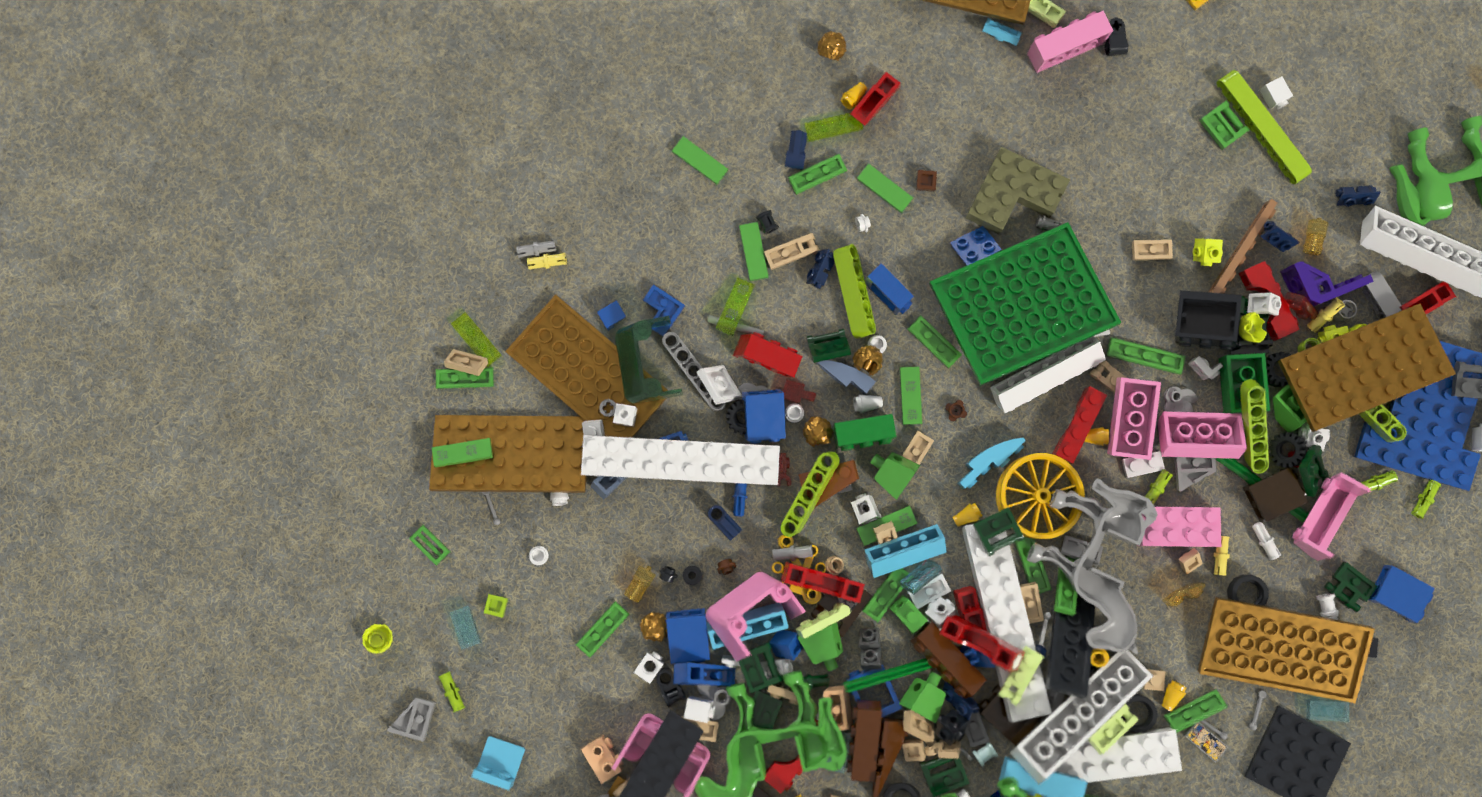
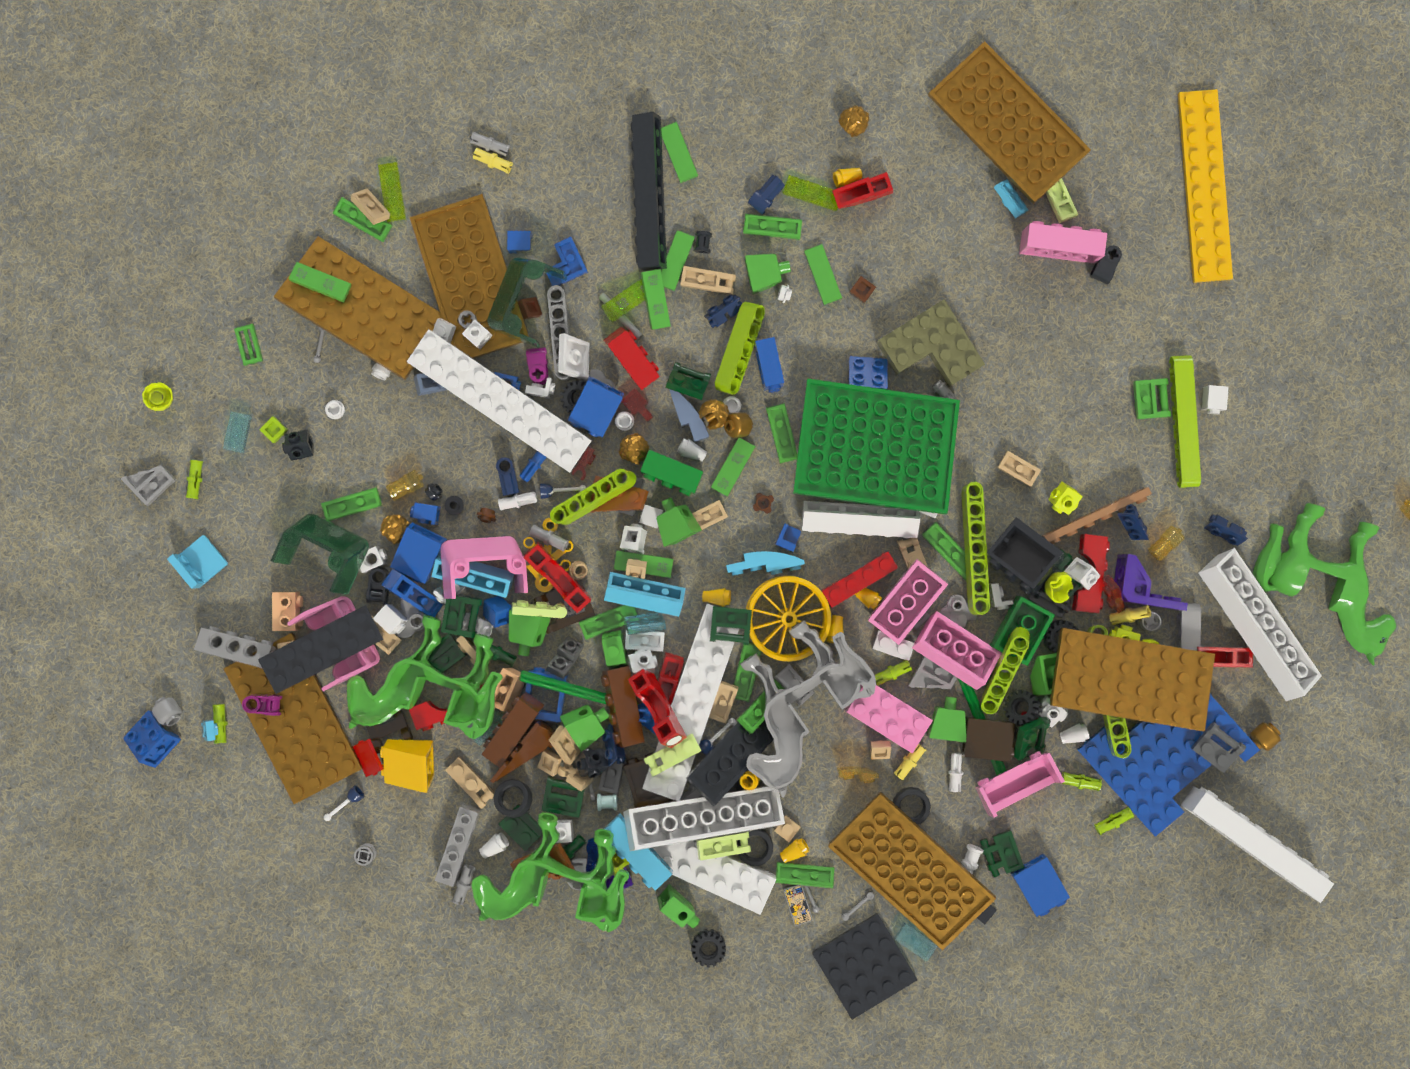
camera: 30 degrees right, 5 degrees up
(526, 605) = (298, 445): none -> black brick
(623, 668) = (345, 547): none -> clear green windscreen
(655, 366) = (529, 308): none -> copper plate
(672, 597) = (425, 513): none -> blue brick
(689, 408) = (537, 363): none -> magenta piece
(696, 207) = (649, 191): none -> black brick
(704, 431) = (539, 391): none -> white bracket
(745, 537) = (517, 500): none -> white axle
(757, 294) = (655, 299): none -> bright green tile
(765, 513) = (547, 490): none -> hinge
(834, 214) = (765, 271): none -> bright green torso
(866, 481) = (649, 516): none -> white tile
(894, 357) = (738, 425): none -> pearl gold head
(995, 427) = (788, 537): none -> blue panel
(1086, 479) = (836, 627): none -> yellow cone
(1161, 348) = (980, 540): none -> lime beam
(1233, 501) = (948, 722): none -> bright green torso
(1345, 444) = (1075, 734): none -> white cone

